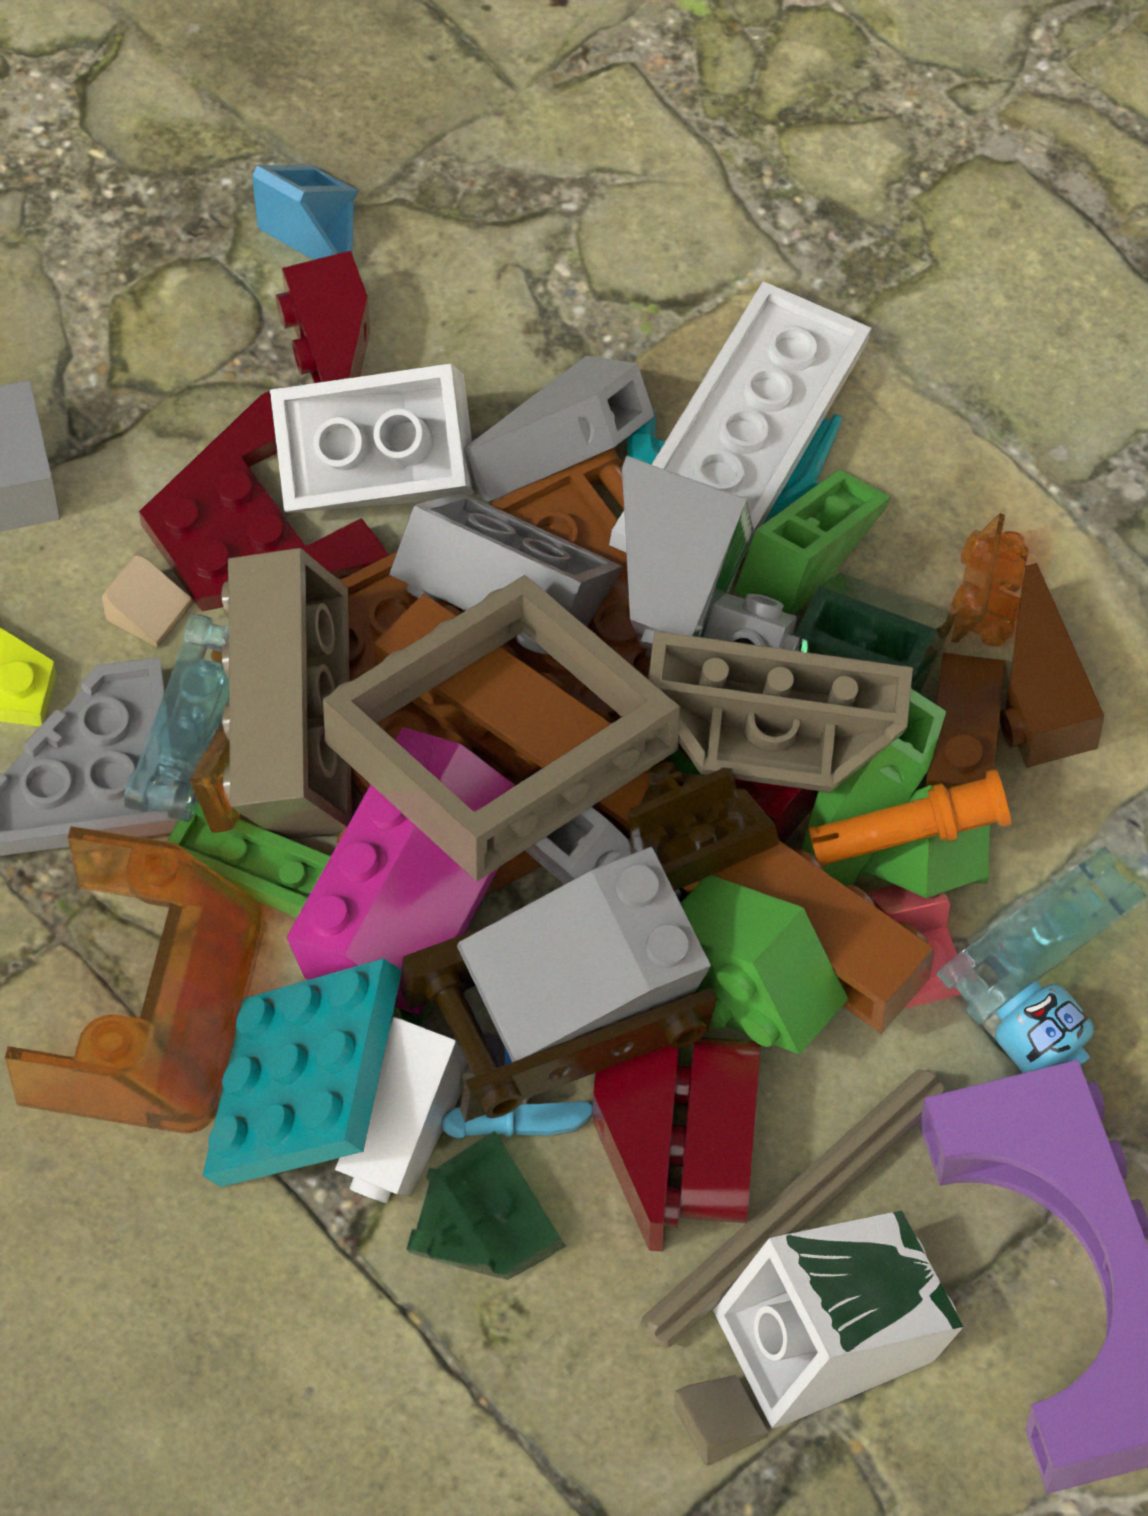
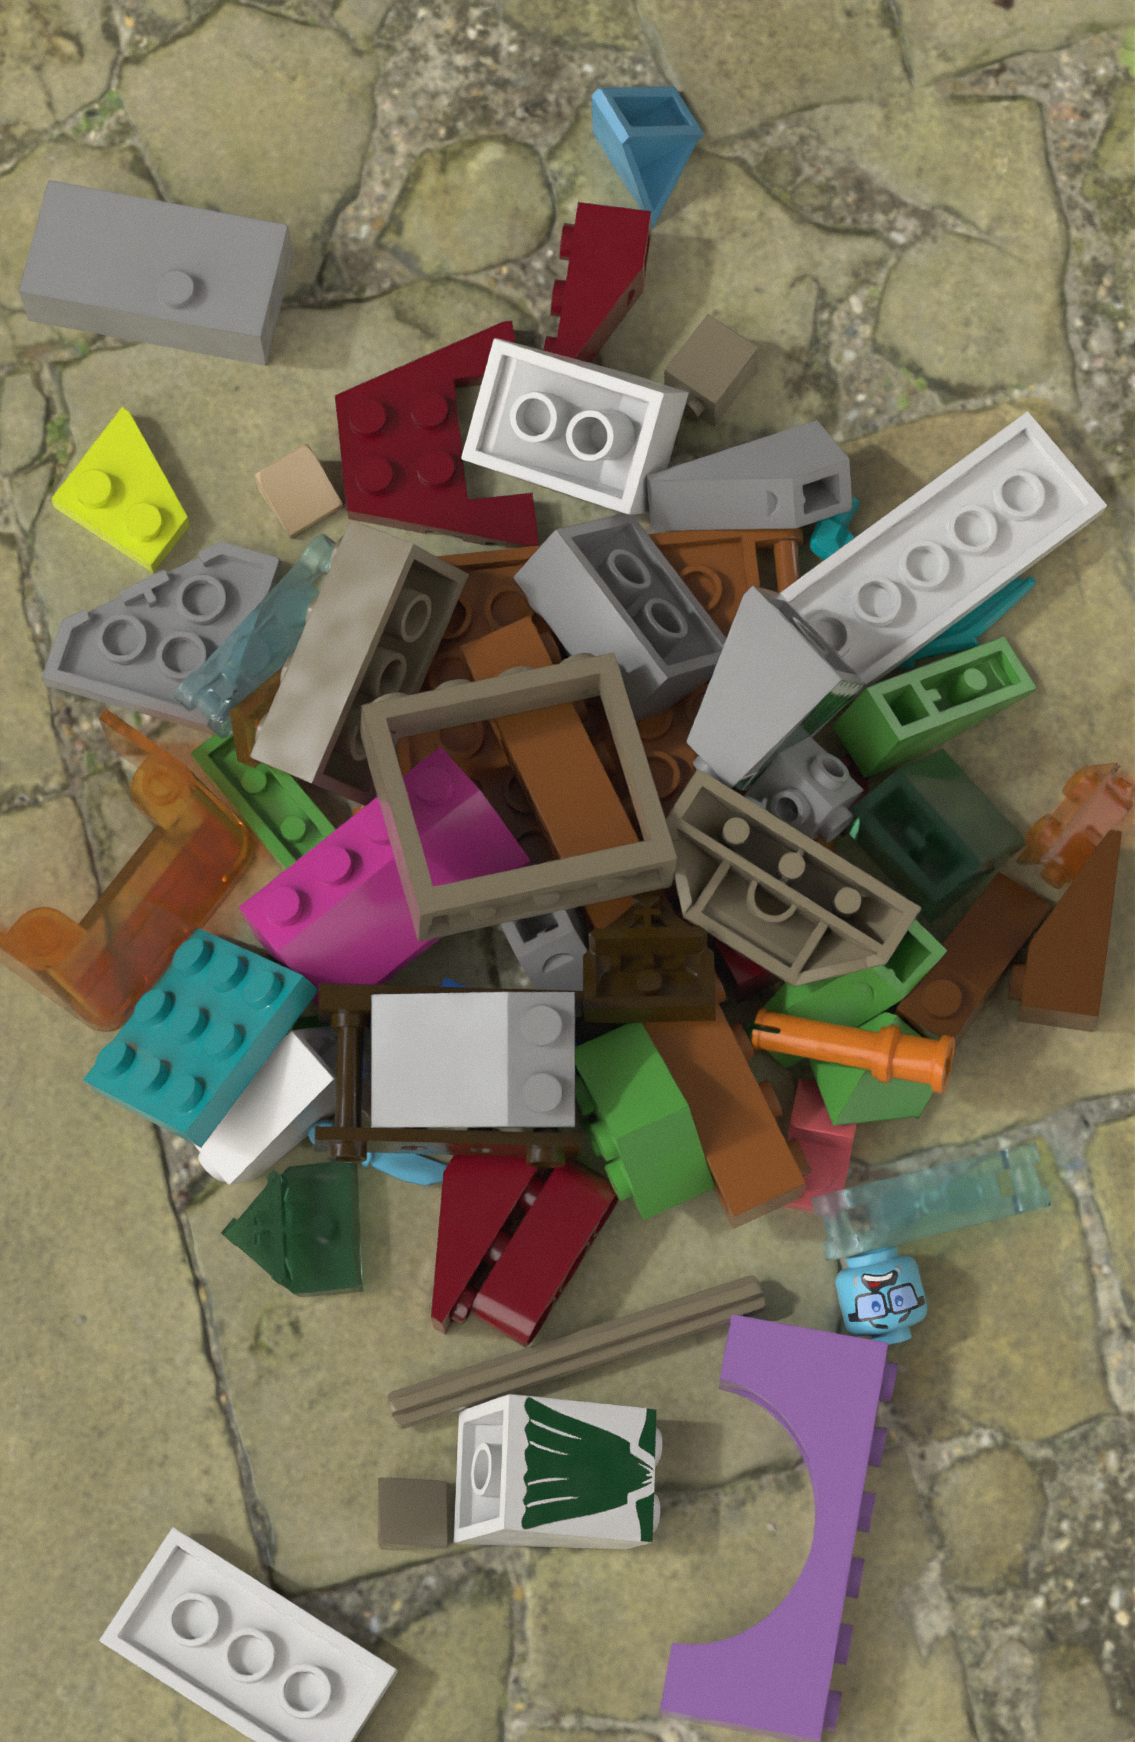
camera: 30 degrees right, 15 degrees up
(477, 349) = (713, 369): none -> dark tan brick

